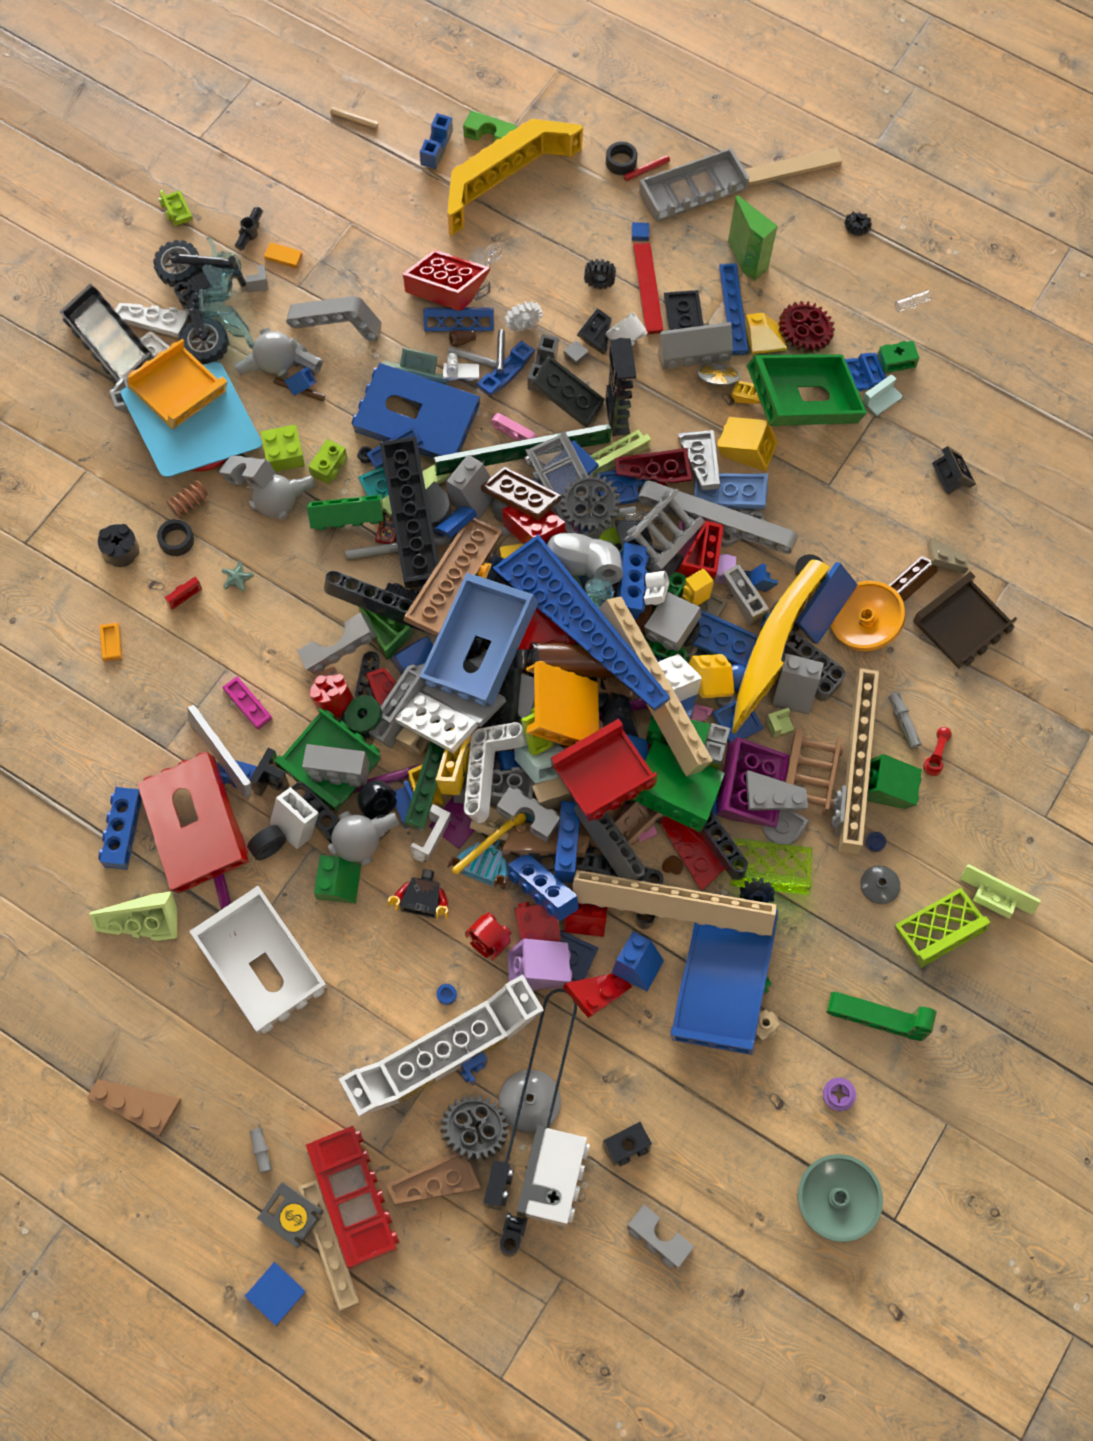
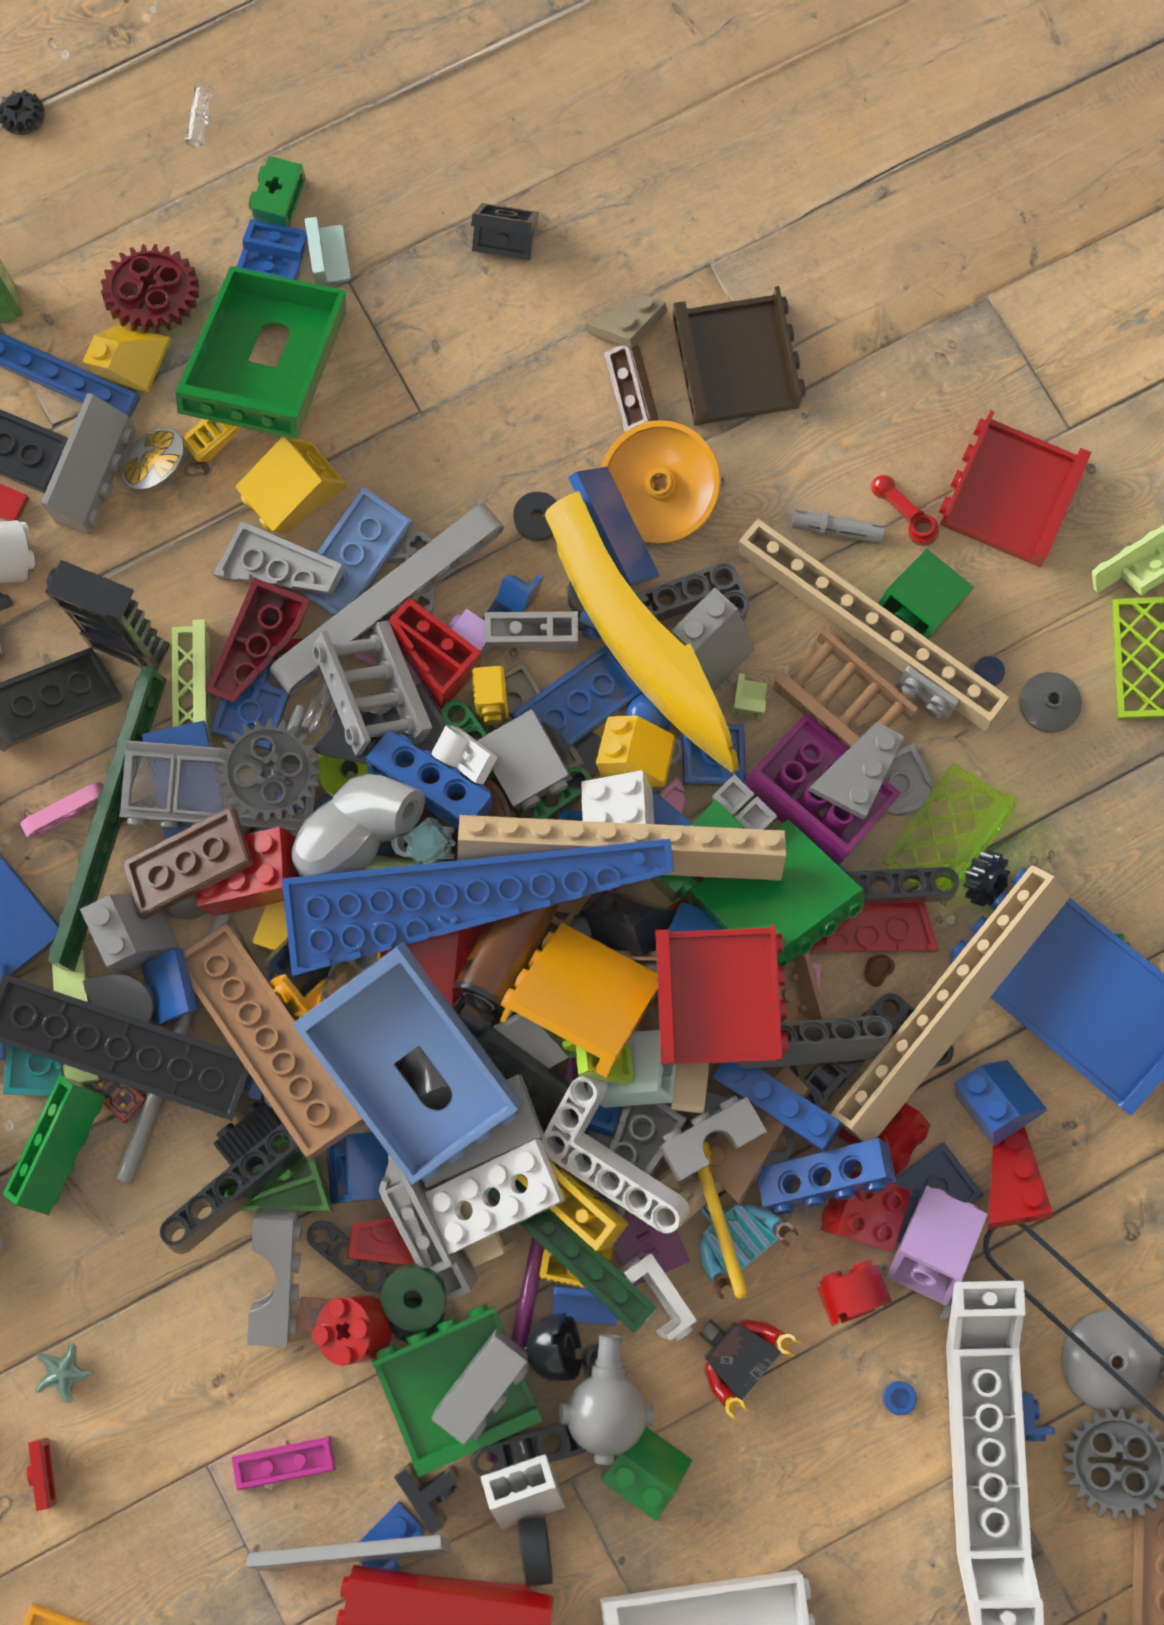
camera: 60 degrees left, 10 degrees up
(987, 801) = (1013, 491): none -> red panel

